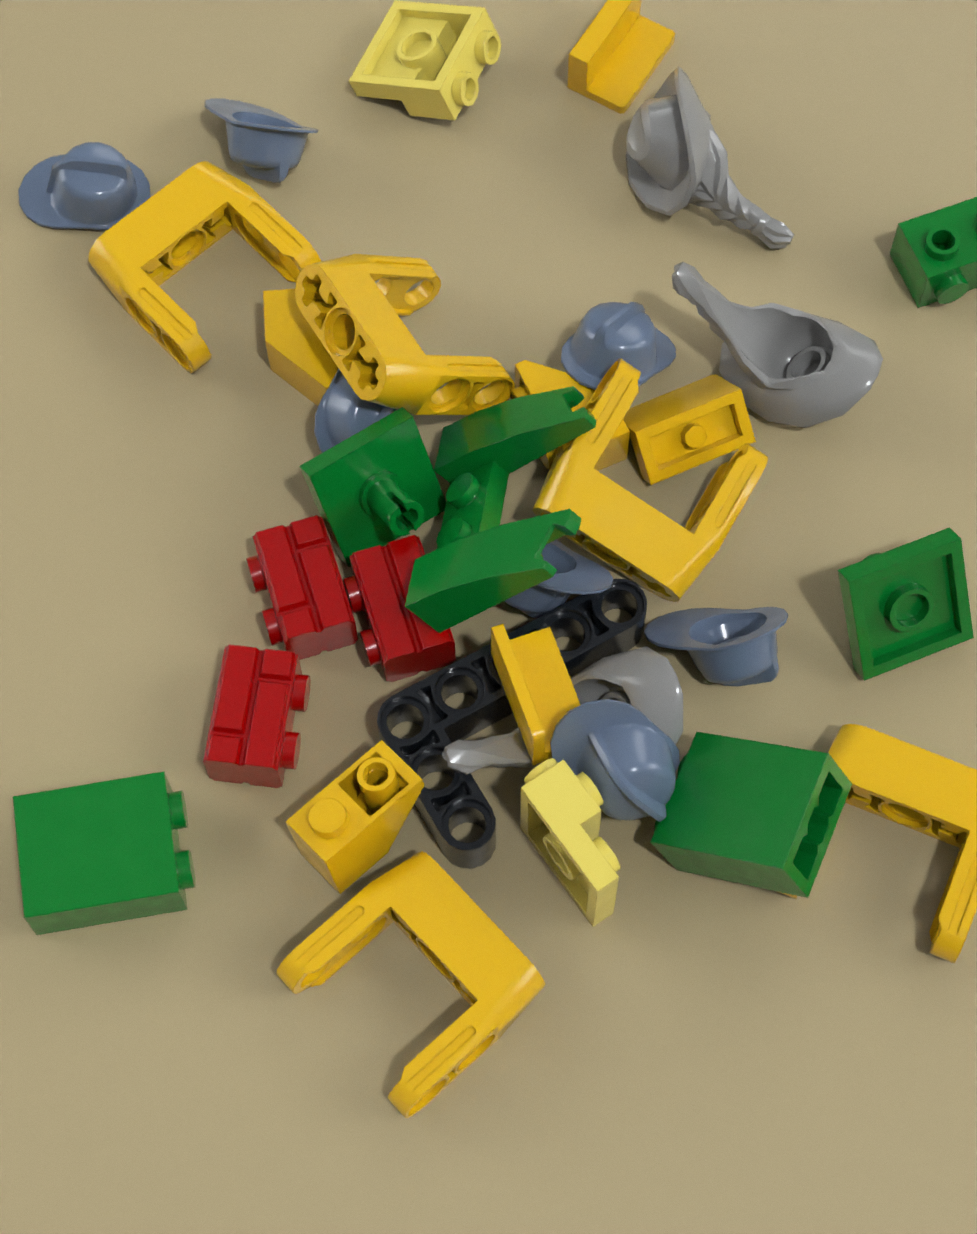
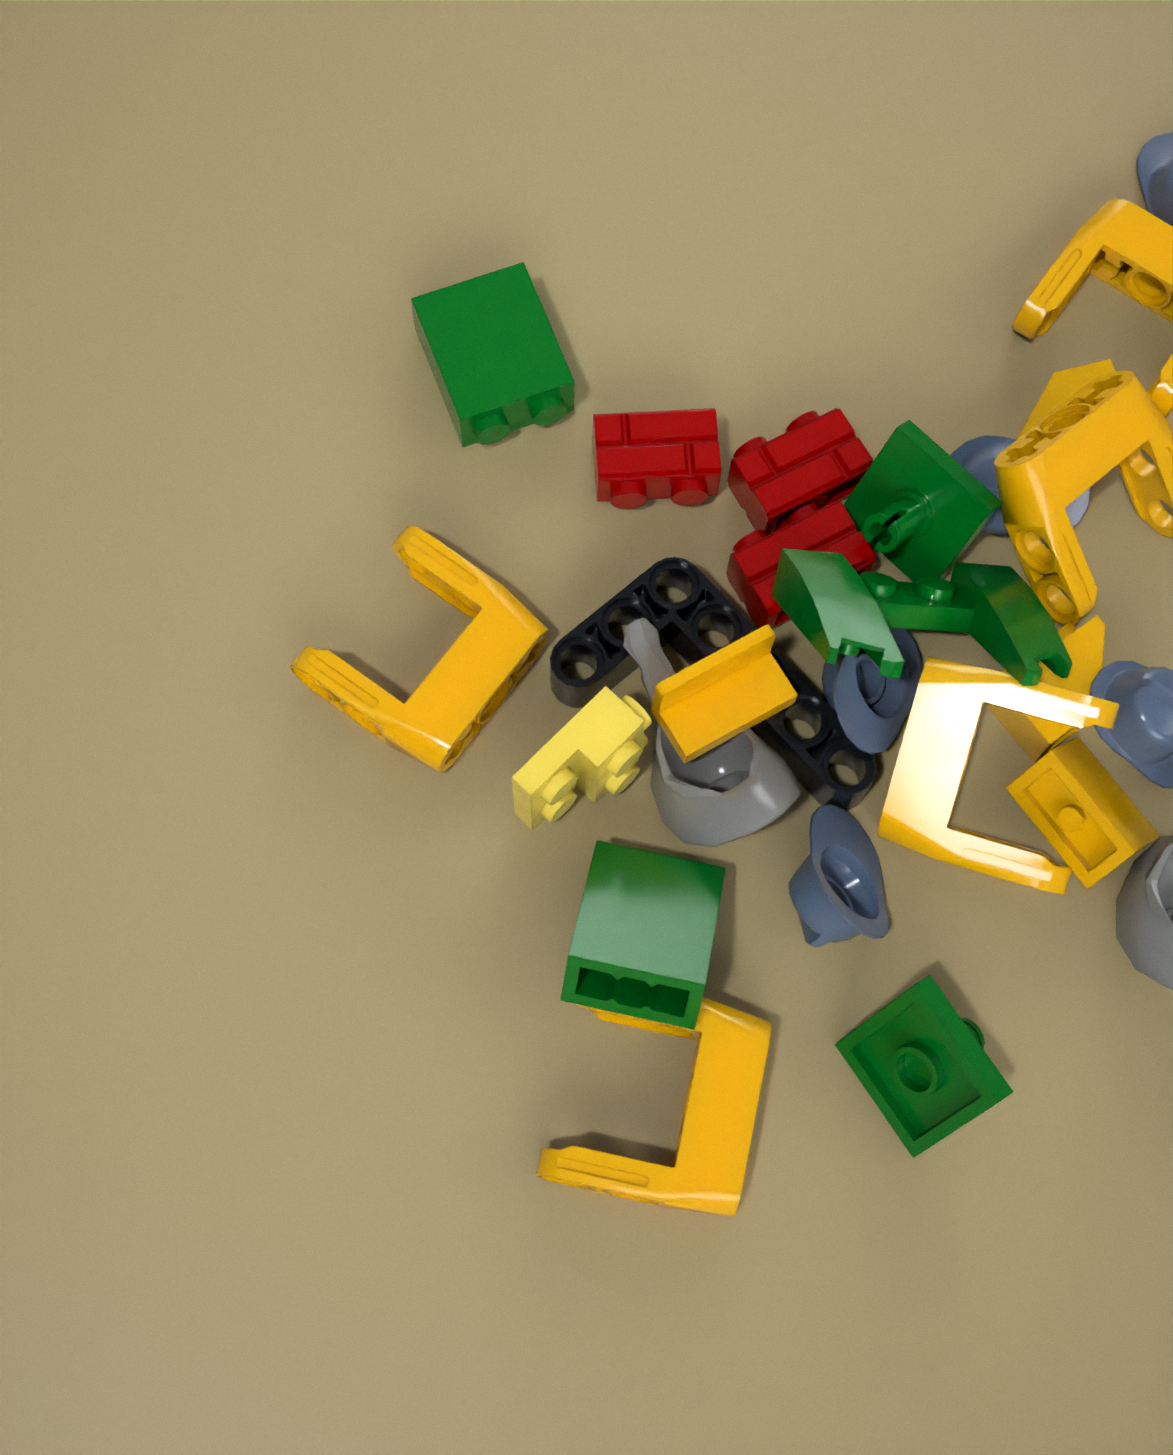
camera: 75 degrees right, 5 degrees up
(356, 816) = (565, 559): yellow slope -> none
(622, 756) = (670, 790): sand blue piece -> none

